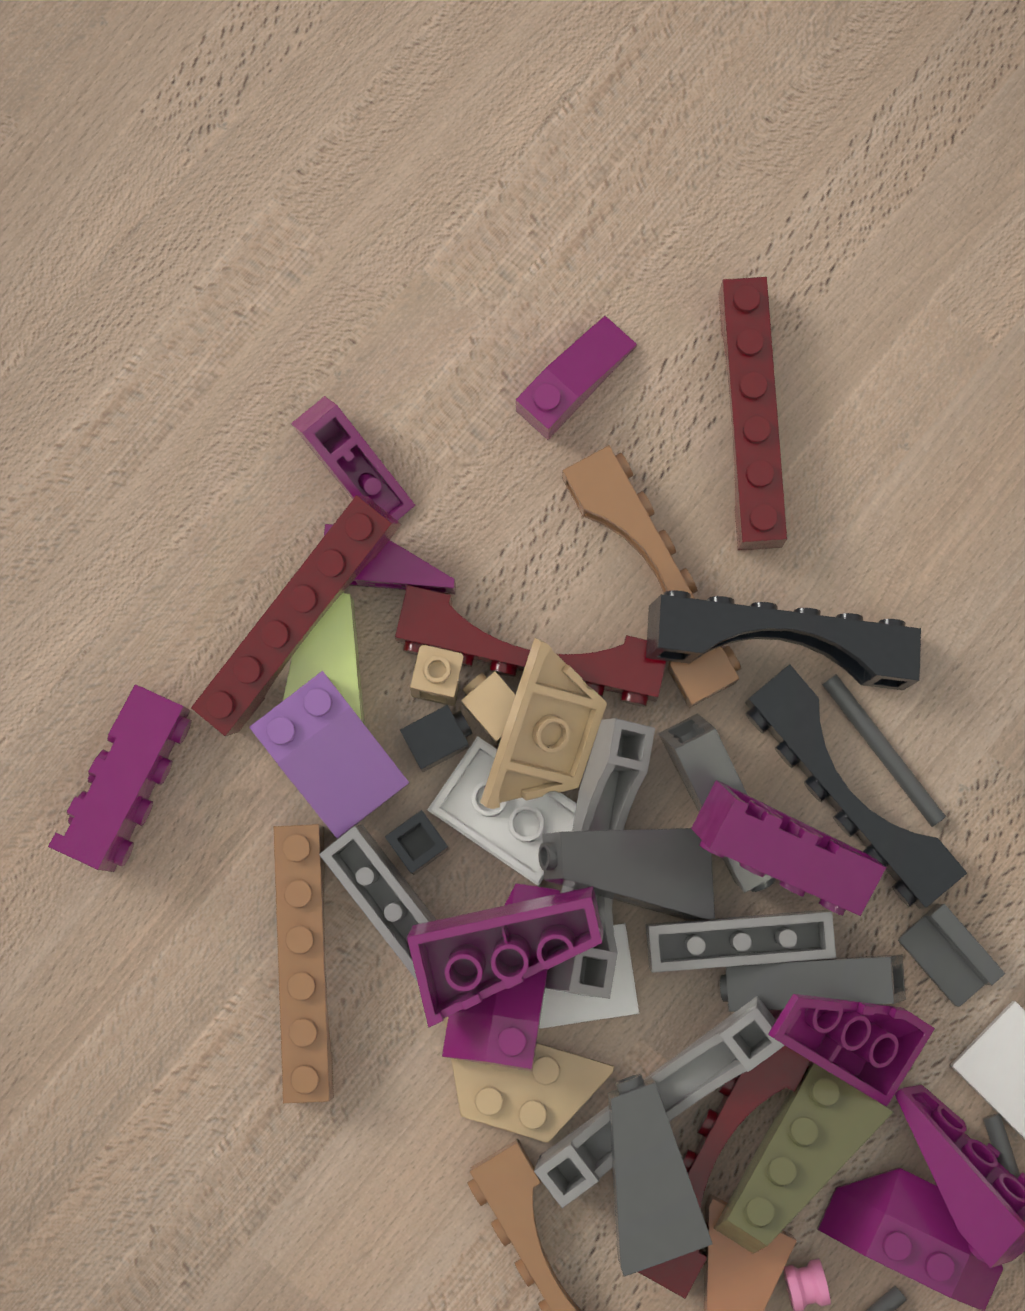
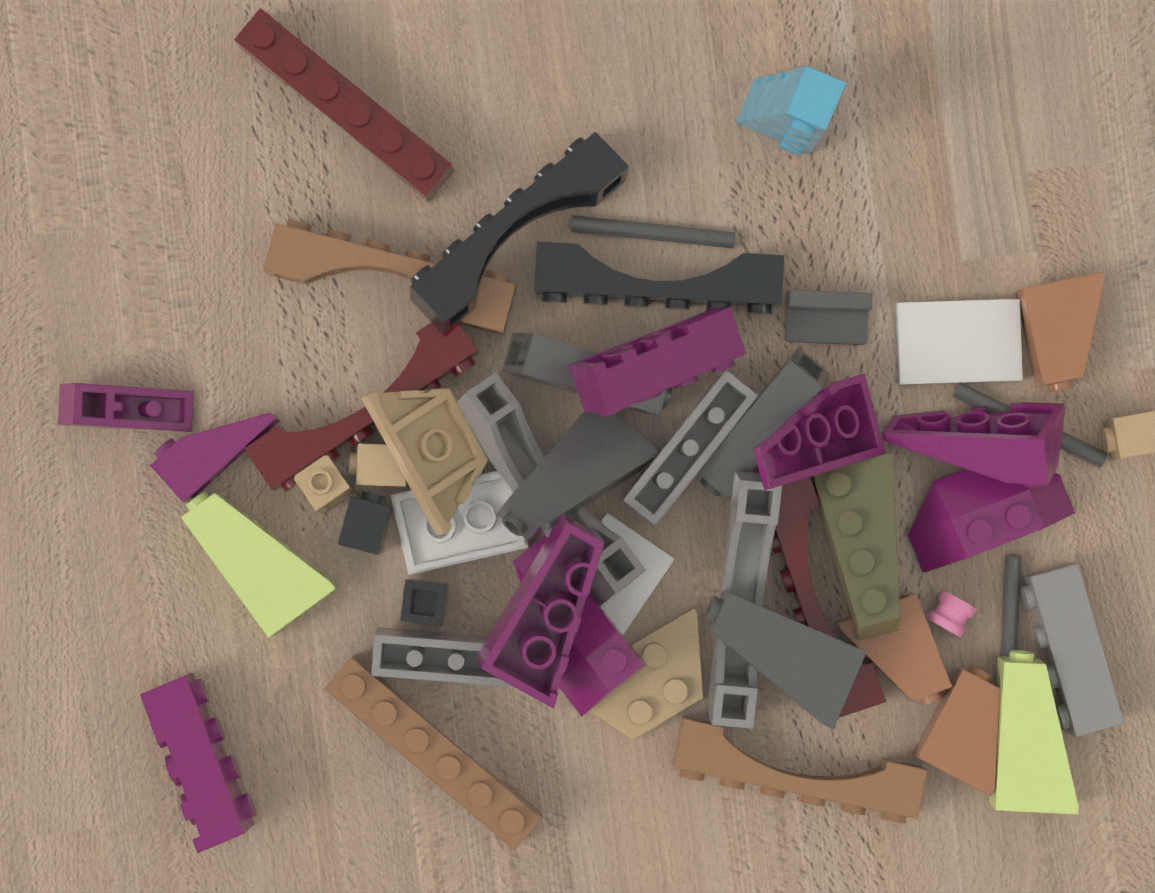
camera: 55 degrees left, 5 degrees up
(313, 589) = (192, 542): dark red arch -> none
(329, 754) = (310, 607): medium lavender slope -> none
(573, 377) = (206, 201): magenta slope -> none

